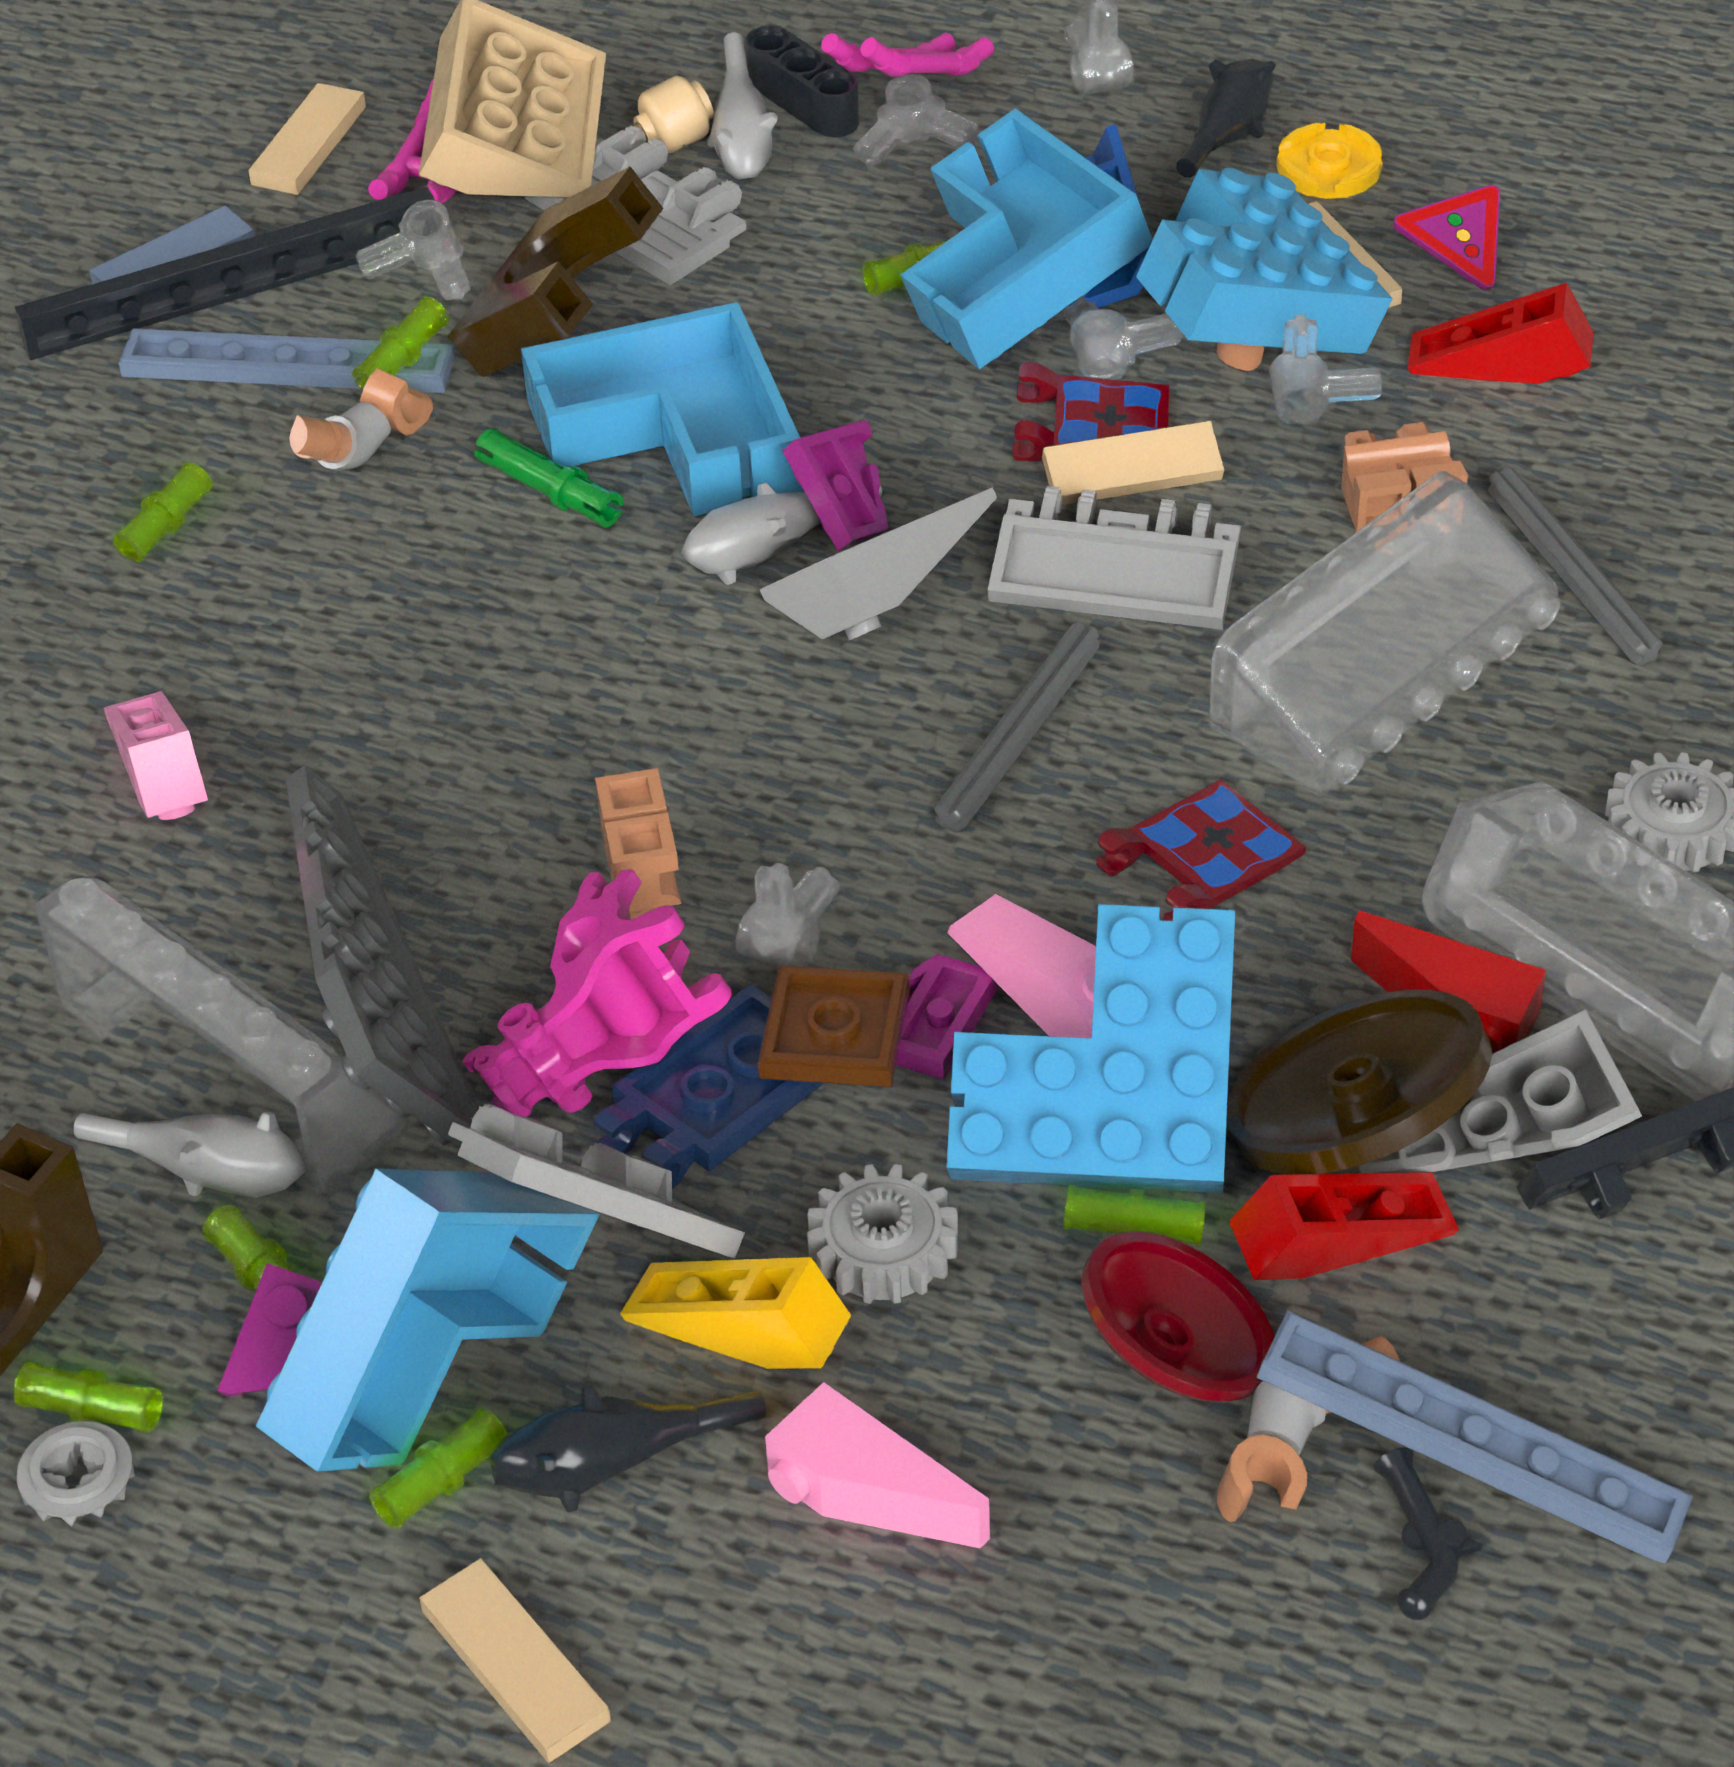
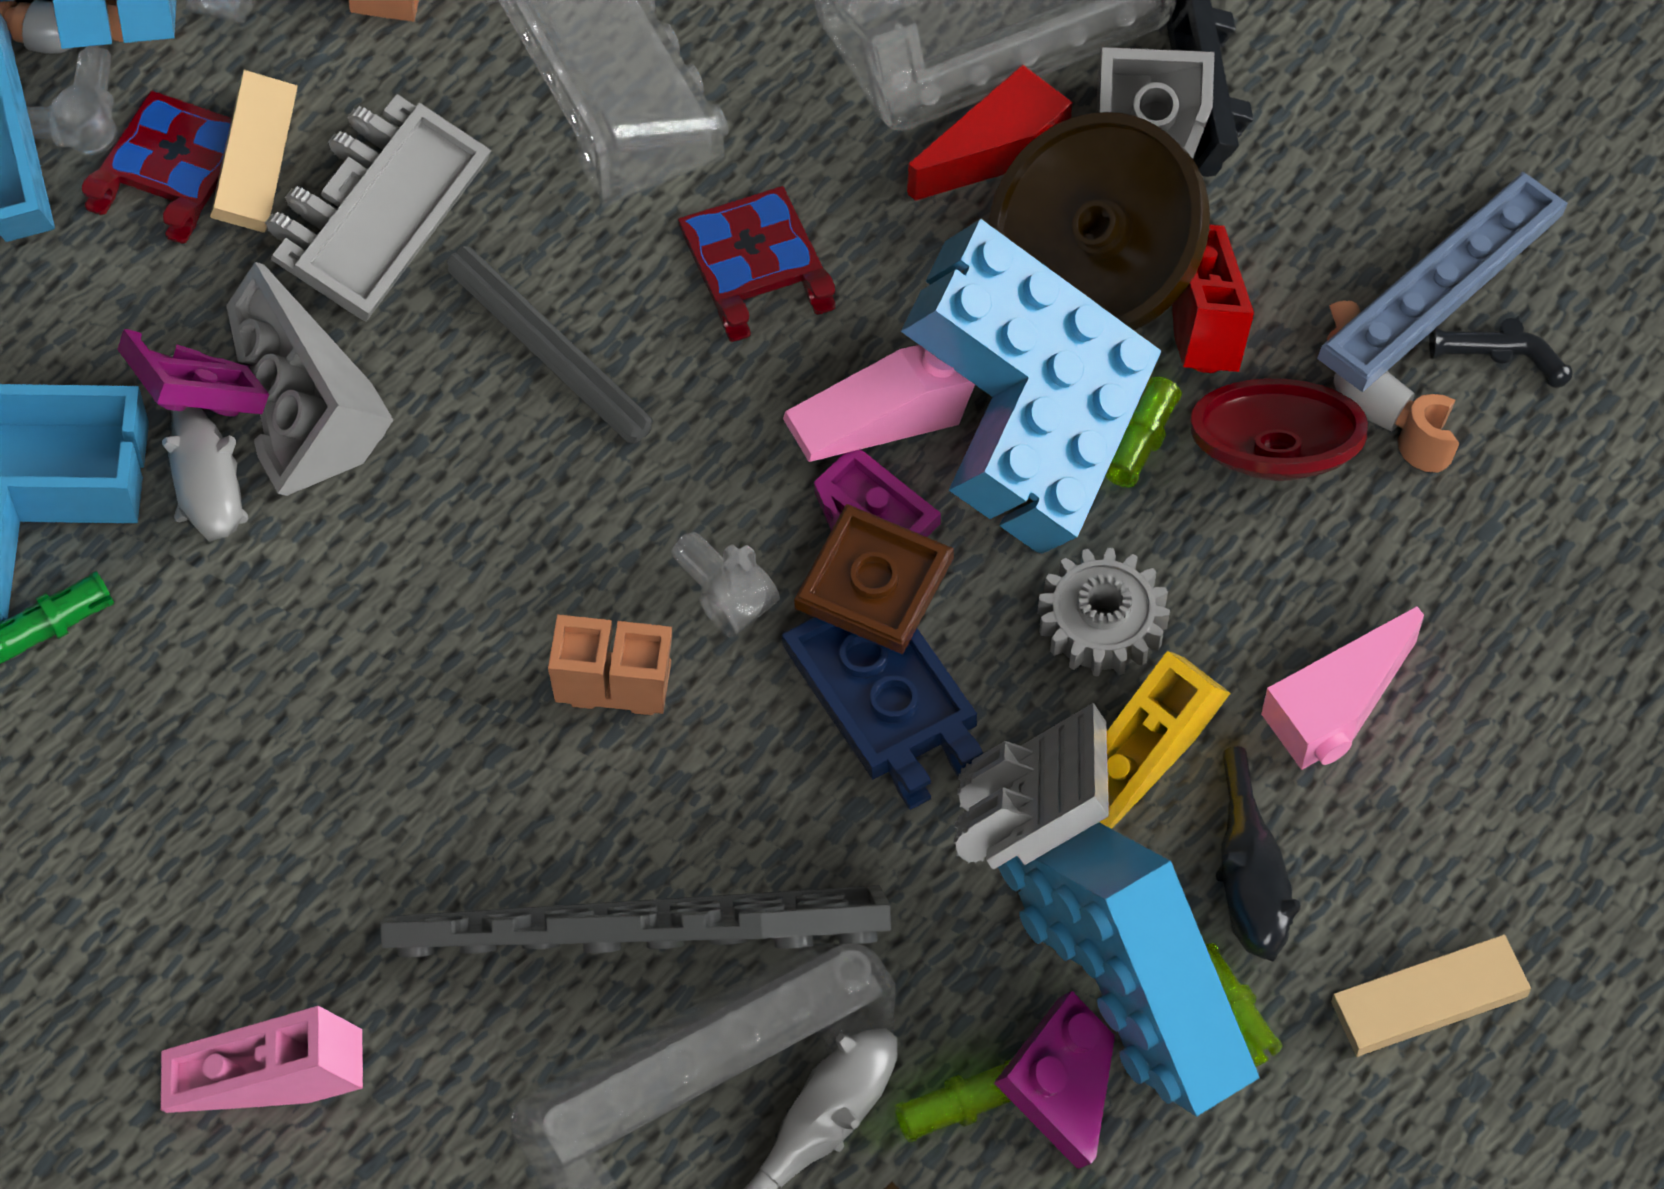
camera: 75 degrees left, 15 degrees up
(611, 1004) = (797, 727): dark pink animal -> none

